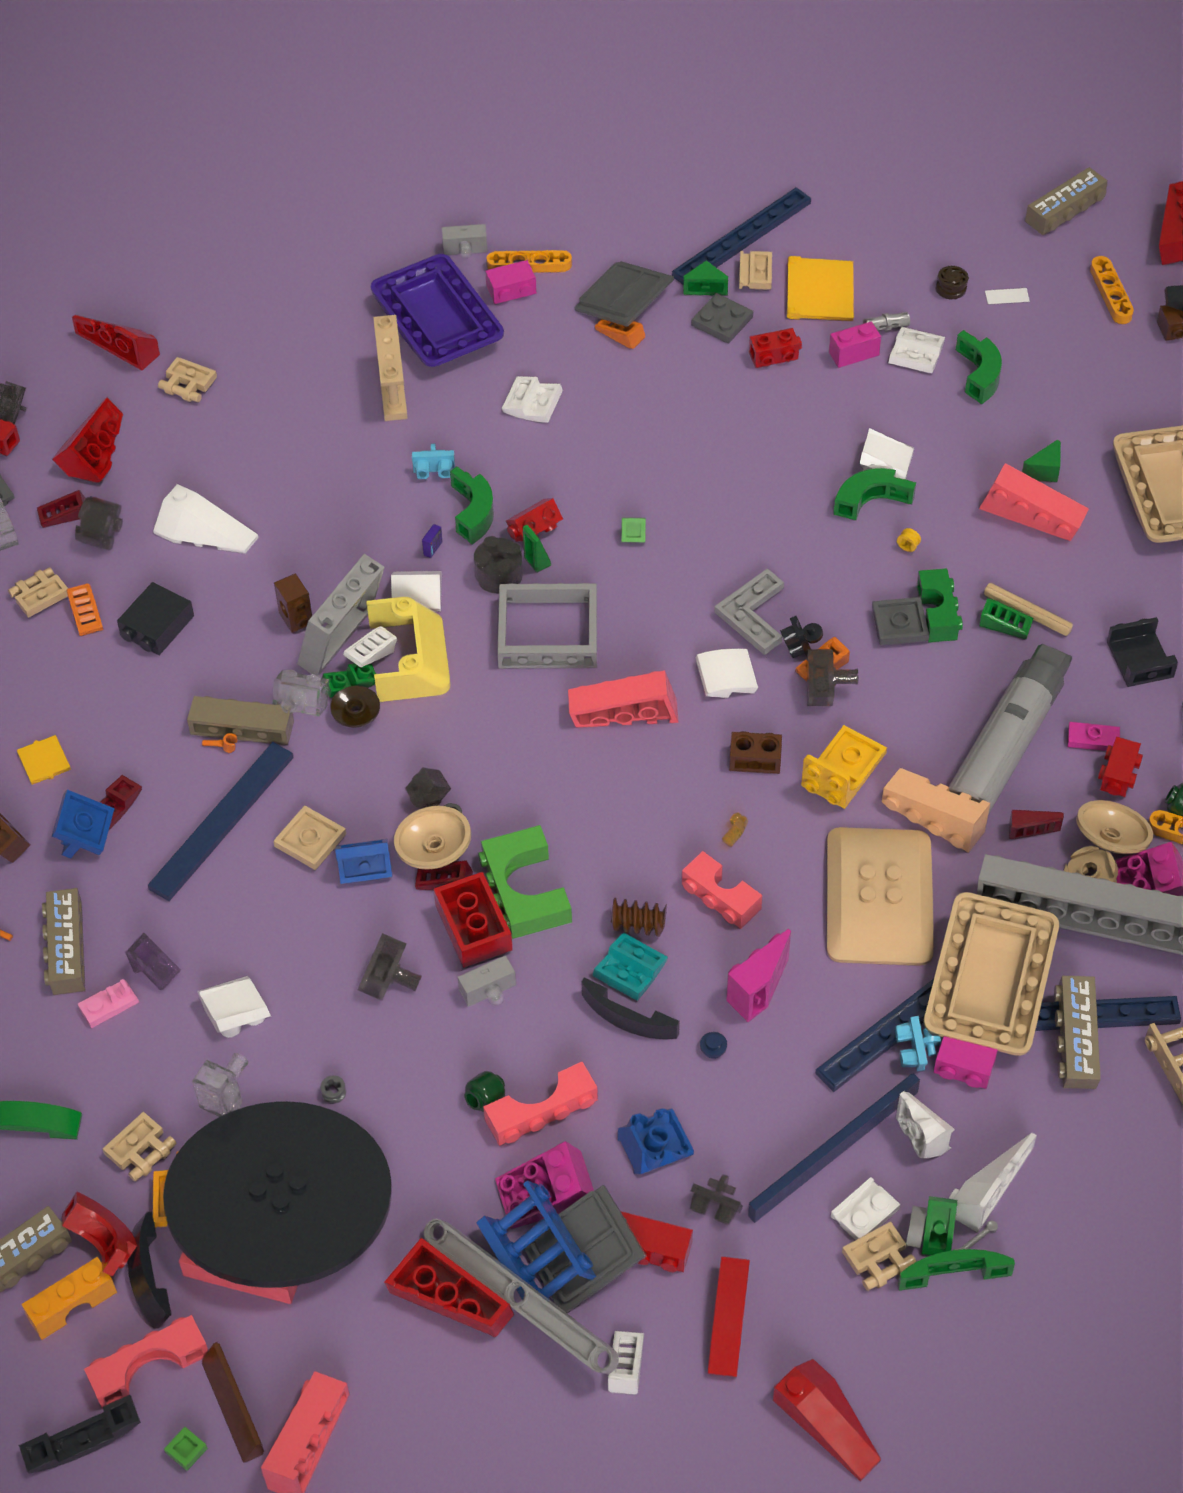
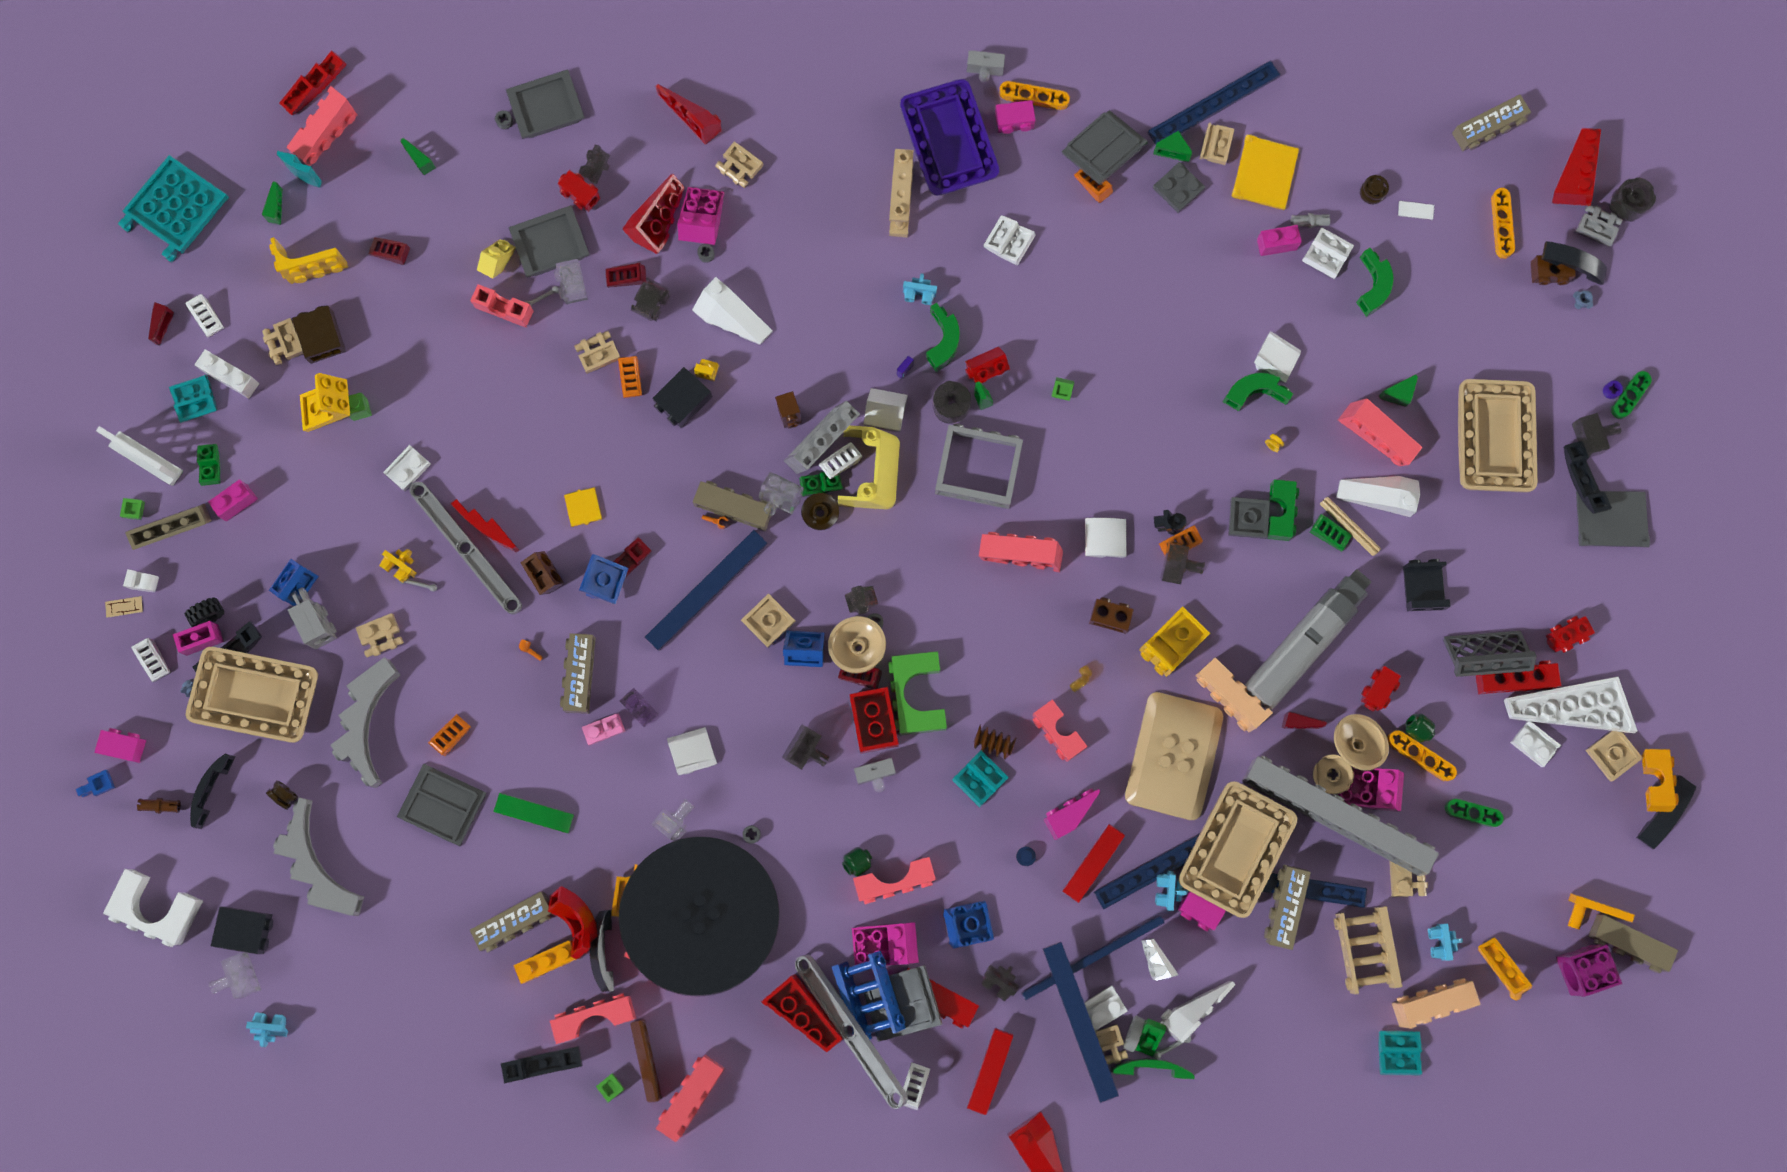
camera: 10 degrees right, 25 degrees up
(134, 1141) = (605, 848): tan plate -> none
(147, 436) = (700, 216): none -> dark pink slope
(158, 466) = (700, 252): none -> dark grey bush
(181, 583) = (706, 370): none -> yellow bracket
(658, 1027) = (990, 834): black slope -> none
(739, 614) = (1126, 482): light grey plate -> none
(774, 347) = (1214, 229): red brick -> none
(806, 1033) = (1093, 863): none -> red slope
(839, 1224) = (1080, 1022): none -> dark blue tile
(1059, 570) = (1390, 494): none -> white wedge
(1091, 736) = (1368, 652): dark pink plate -> none

